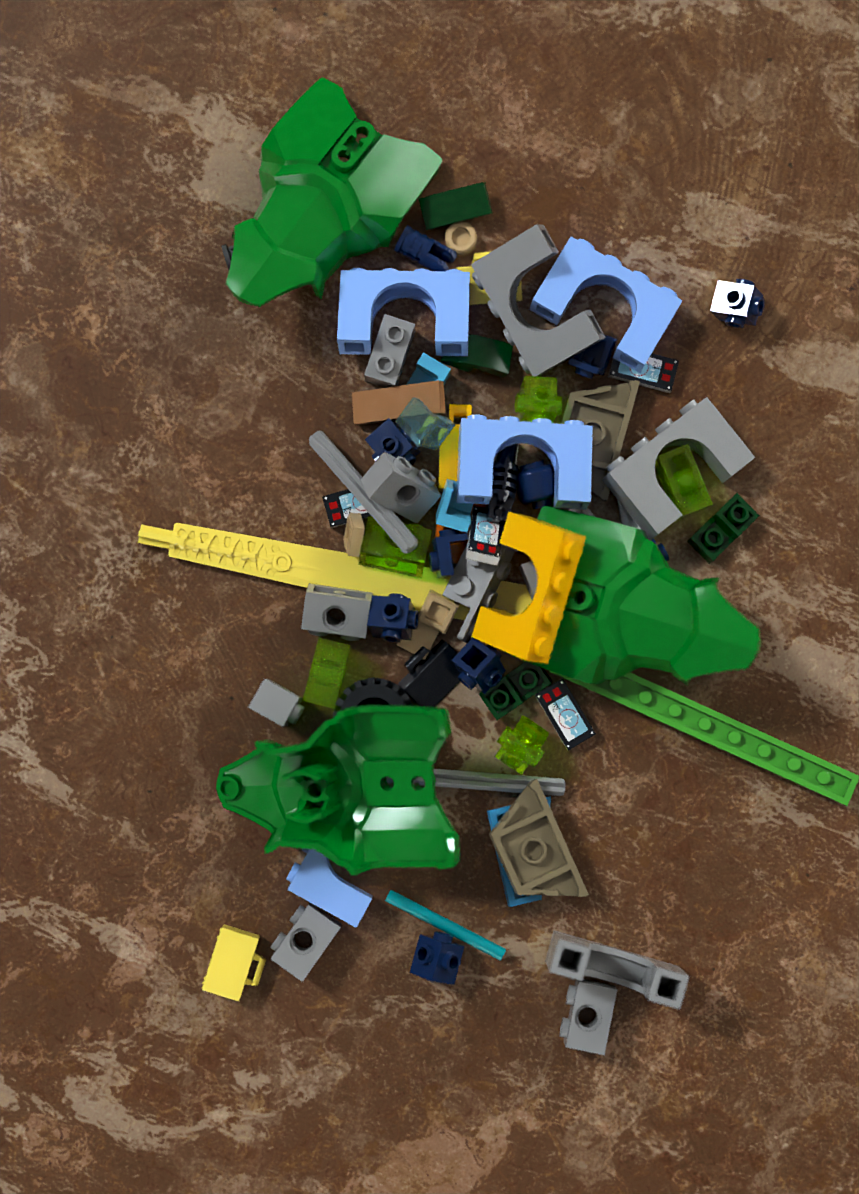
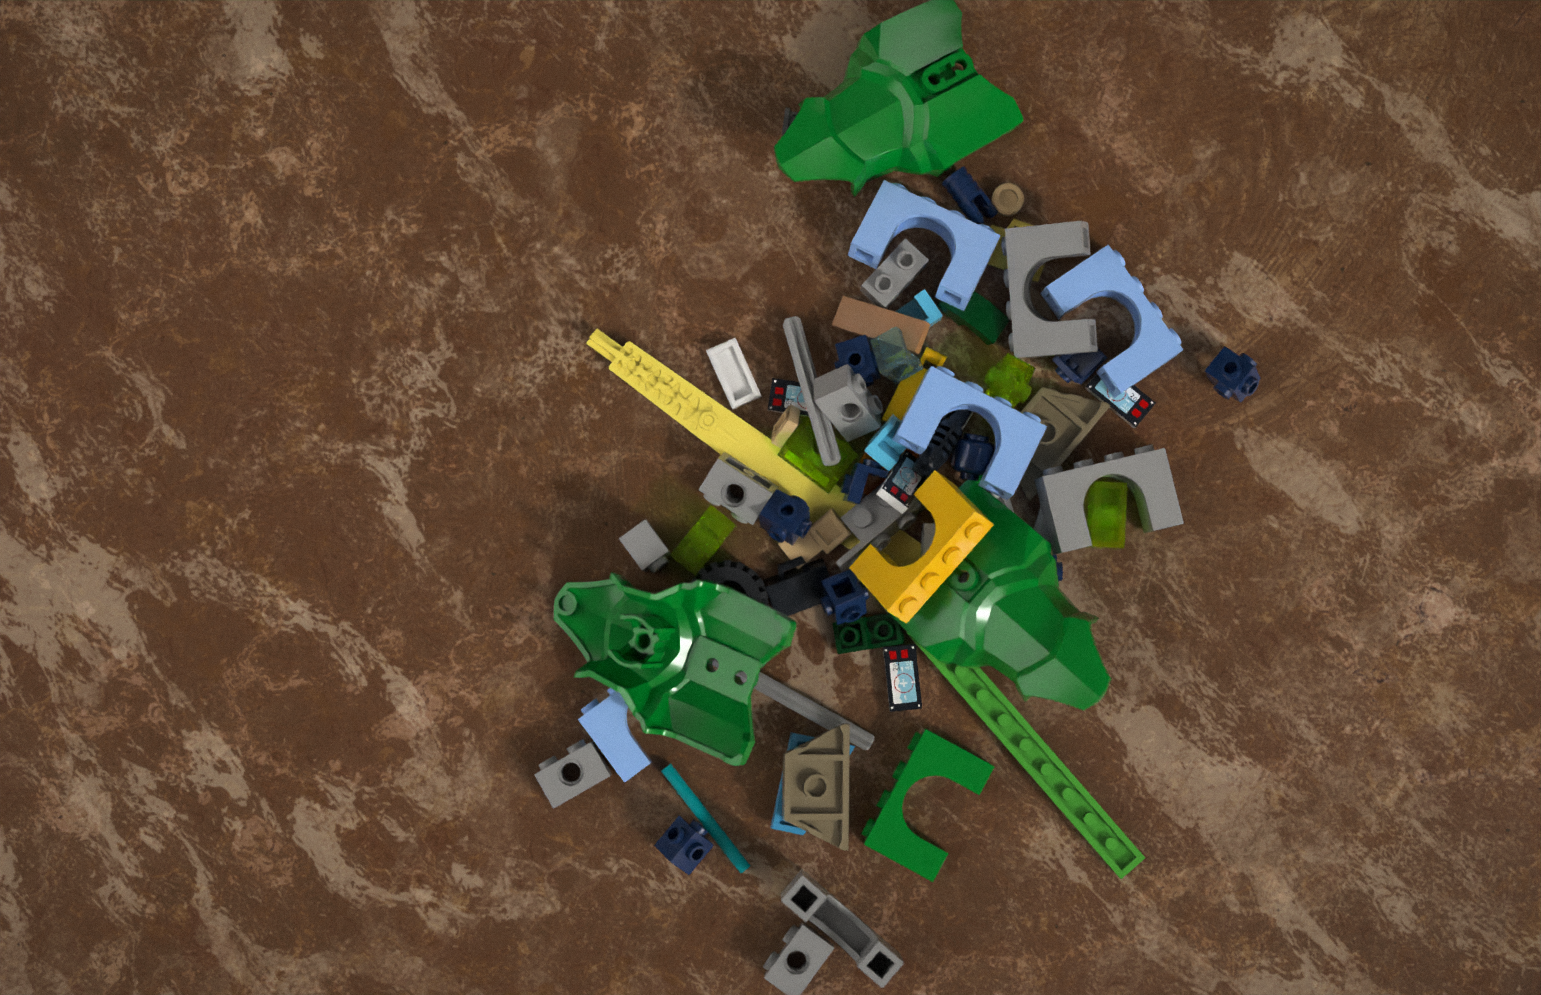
camera: 30 degrees right, 0 degrees up
(232, 963) = (497, 762): light yellow piece -> none
(285, 508) = (733, 373): none -> white tile
(455, 206) = (1016, 168): dark green slope -> none
(517, 749) = (845, 691): clear neon green brick -> none
(616, 859) = (889, 832): none -> green arch
(723, 528) = (1125, 574): dark green slope -> none

